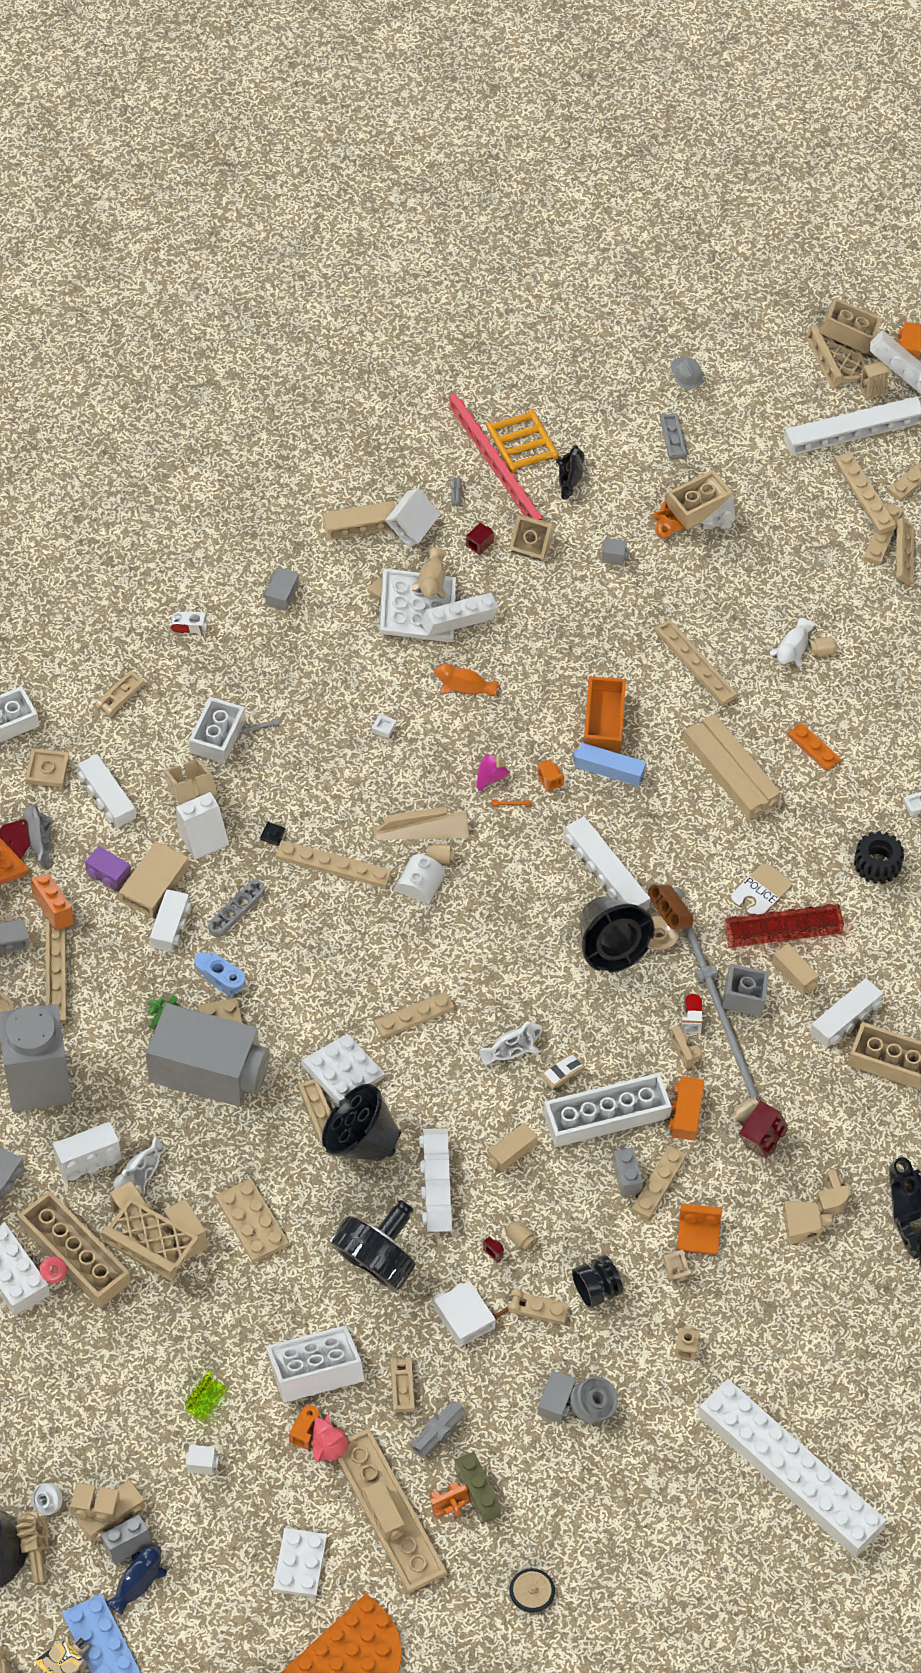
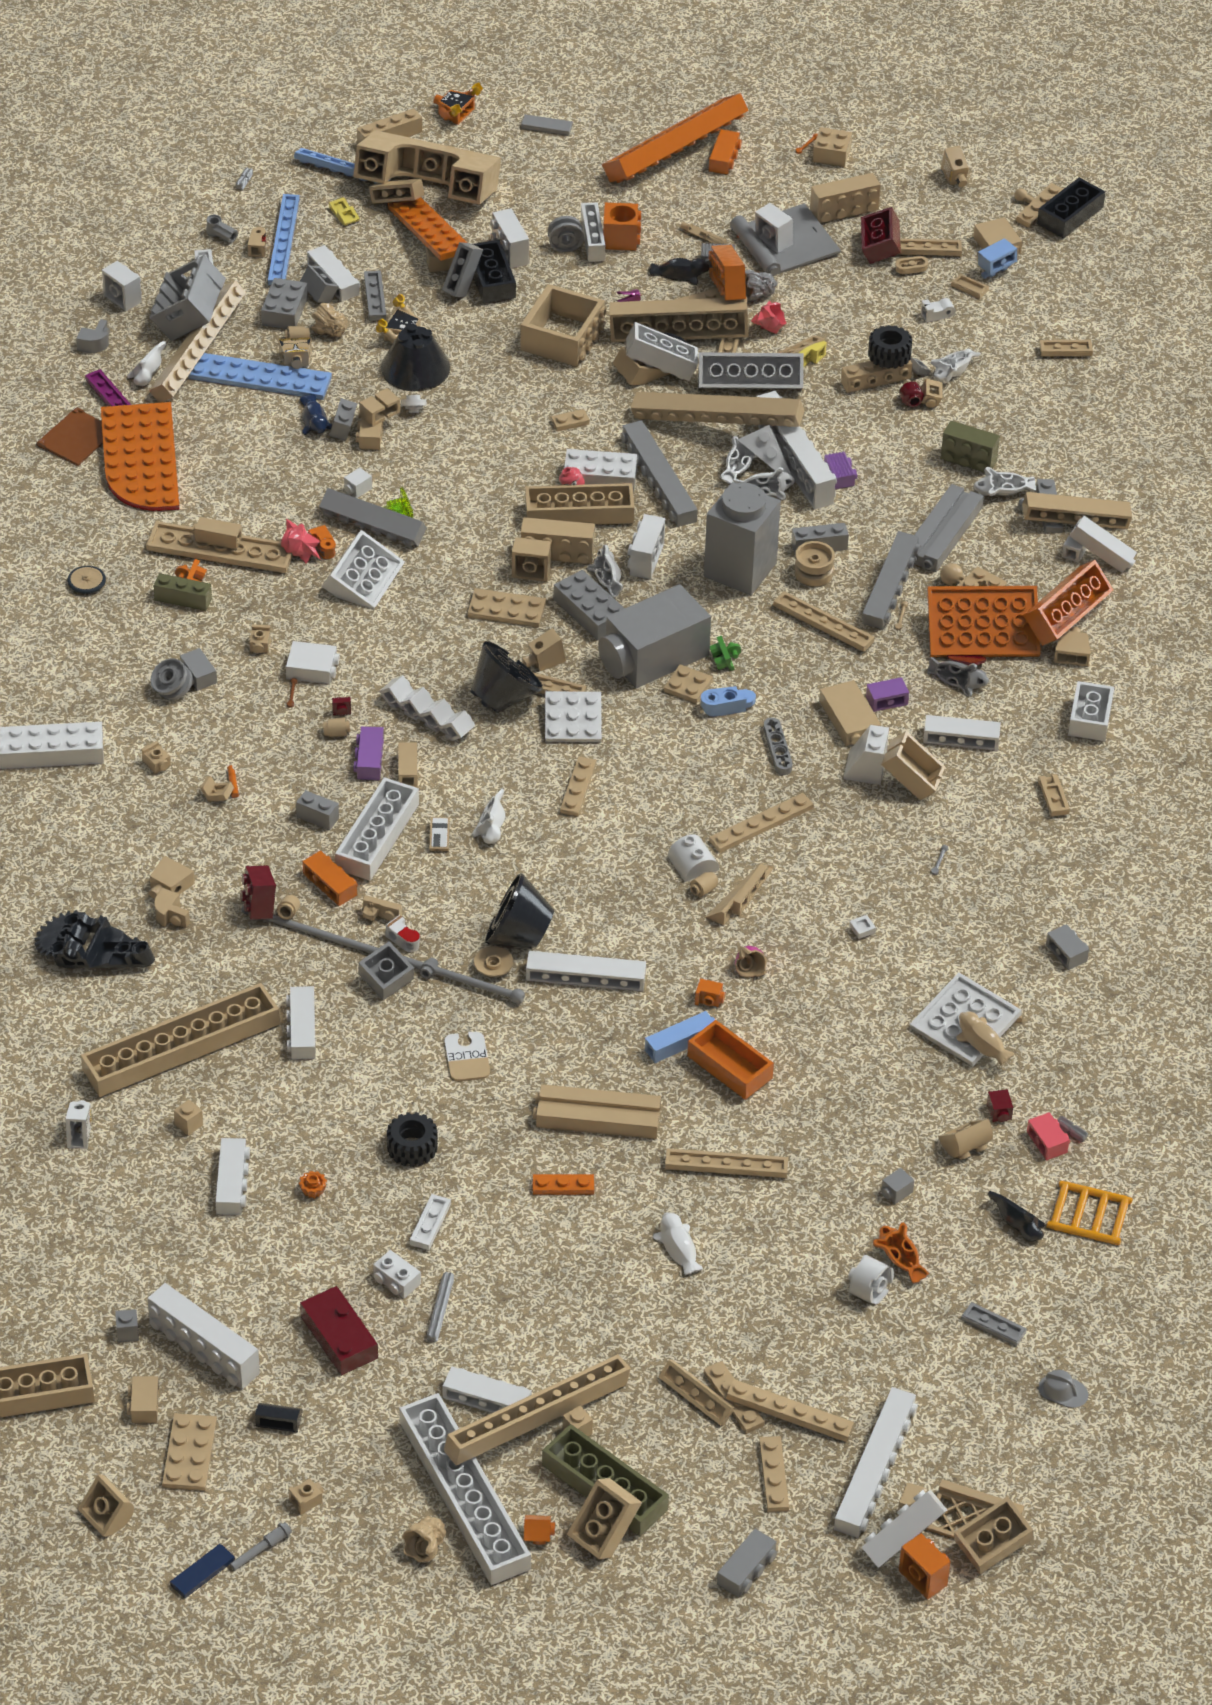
camera: 130 degrees right, 10 degrees down
(33, 1540) = (395, 380): tan gear -> none
(47, 768) = (1019, 714): tan plate -> none
(52, 901) = (883, 641): orange brick -> none
(138, 1251) = (534, 510): tan fence -> none
(170, 921) = (803, 700): white brick -> none
(189, 622) = (1085, 872): white leg -> none
(196, 1151) = (586, 602): none -> light grey brick
(217, 730) = (955, 821): white brick -> none
(240, 1406) = (372, 517): none -> light grey brick
(272, 833) = (826, 805): black plate -> none
(289, 1138) = (545, 651): none -> tan torso
(300, 1562) = (236, 491): white plate -> none
(357, 520) = (1096, 1041): tan brick -> none
(375, 1248) = (402, 624): black wheel -> none
(402, 1385) = (298, 605): tan plate -> none
(412, 517) = (1061, 1066): white brick -> none
(438, 1429) = (245, 601): light grey piece -> none
(459, 614) = (925, 1031): white brick -> none
(463, 681) = (861, 1004): orange animal -> none
(474, 1384) = (260, 638): none -> tan brick
(480, 496) = (1048, 1136): none -> coral brick
(492, 457) = (1079, 1171): coral plate -> none
(495, 803) = (720, 952): orange hinge -> none
(526, 1185) = (369, 753): none -> medium lavender brick
(538, 1307) = (273, 703): tan plate -> none
(597, 1280) = (252, 733): black wheel -> none
(651, 1269) = (232, 778): none -> orange wheel
(658, 1182) = (292, 829): tan plate -> none
(670, 906) = (506, 975): dark orange beam -> none
(698, 498) = (885, 1247): tan slope -> none
(699, 1229) = (230, 820): orange bracket -> none
(783, 925) = (418, 1040): clear red brick -> none
(795, 969) = (372, 1019): tan brick -> none
(823, 646) = (655, 1259): tan brick -> none

